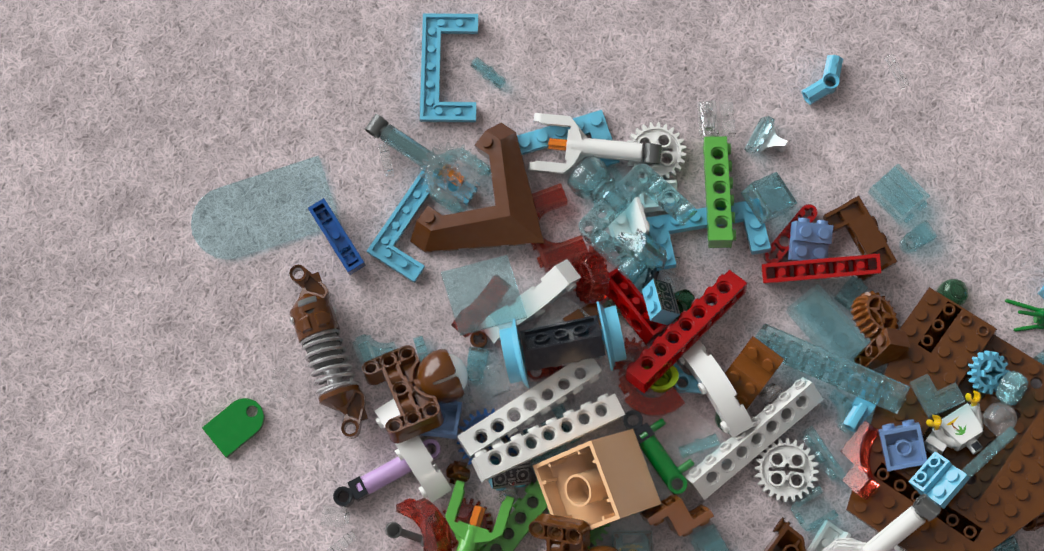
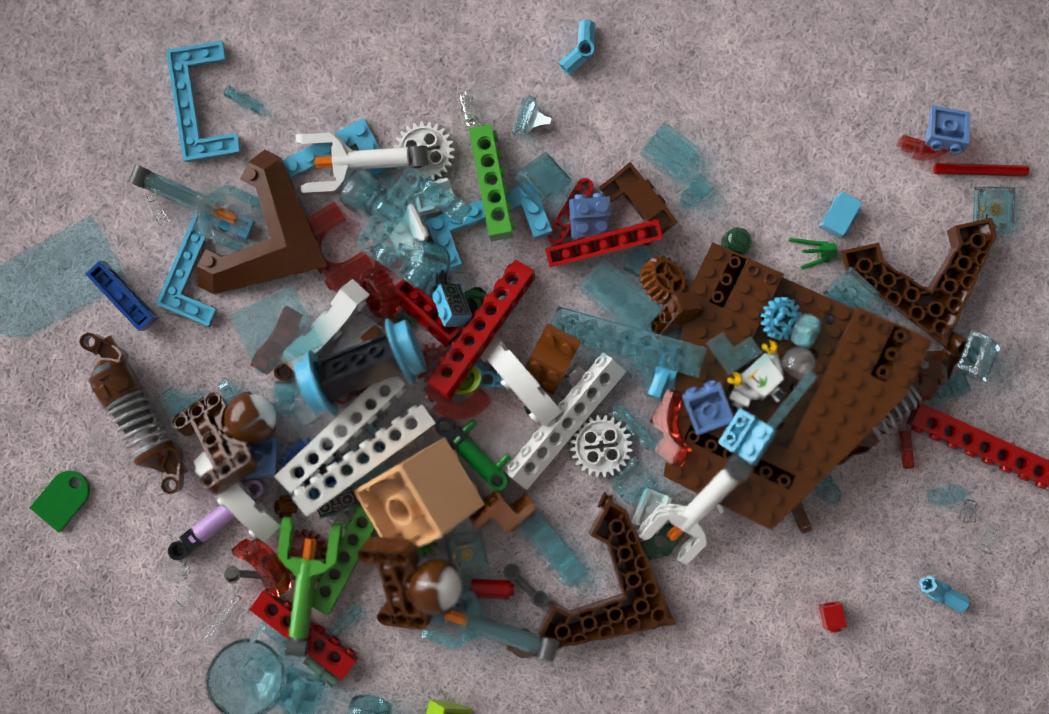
camera: 10 degrees left, 10 degrees up
(698, 446) = (512, 439): clear light blue pin -> none

